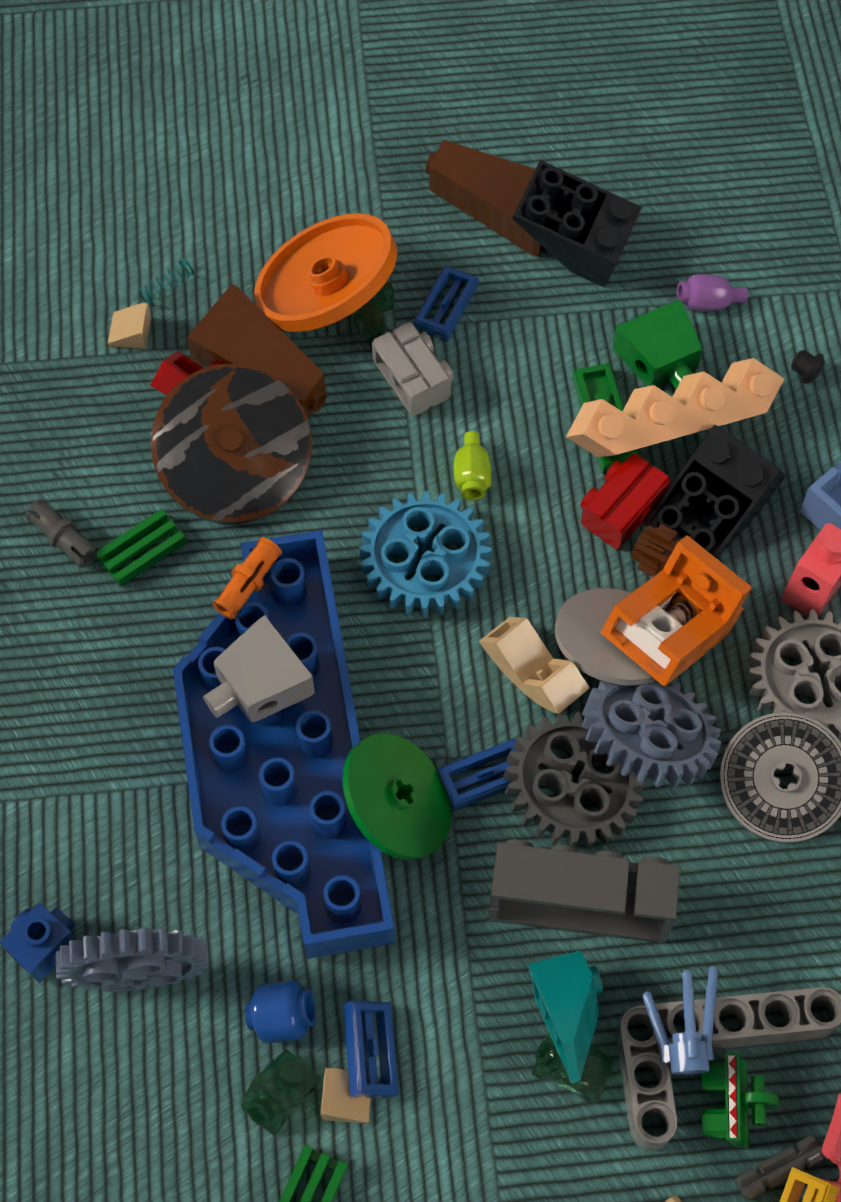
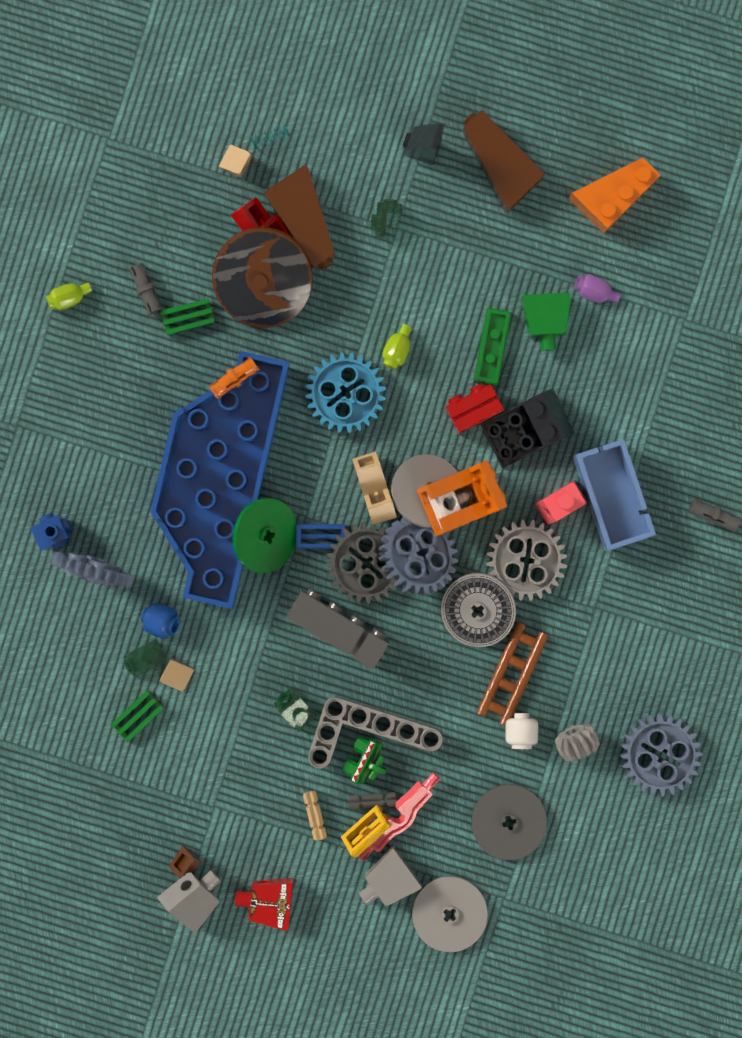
camera: 20 degrees right, 25 degrees up
(259, 675) = (215, 441): light grey torso -> none
(326, 272) = (365, 181): orange dish -> none
(363, 1049) = (194, 656): blue tile -> none
(387, 191) = (424, 142): none -> black slope
(412, 368) = (391, 266): light grey brick -> none
(434, 326) = (418, 238): blue tile -> none
(569, 1006) = (303, 685): teal slope -> none
(576, 221) = (535, 208): black slope -> none
(654, 548) = (476, 448): reddish brown gear -> none
(657, 417) = (539, 372): light nougat brick -> none
(671, 172) = (614, 194): none -> orange wedge
(688, 1051) = (349, 733): medium blue plant -> none
(808, 365) = (628, 364): black piece -> none

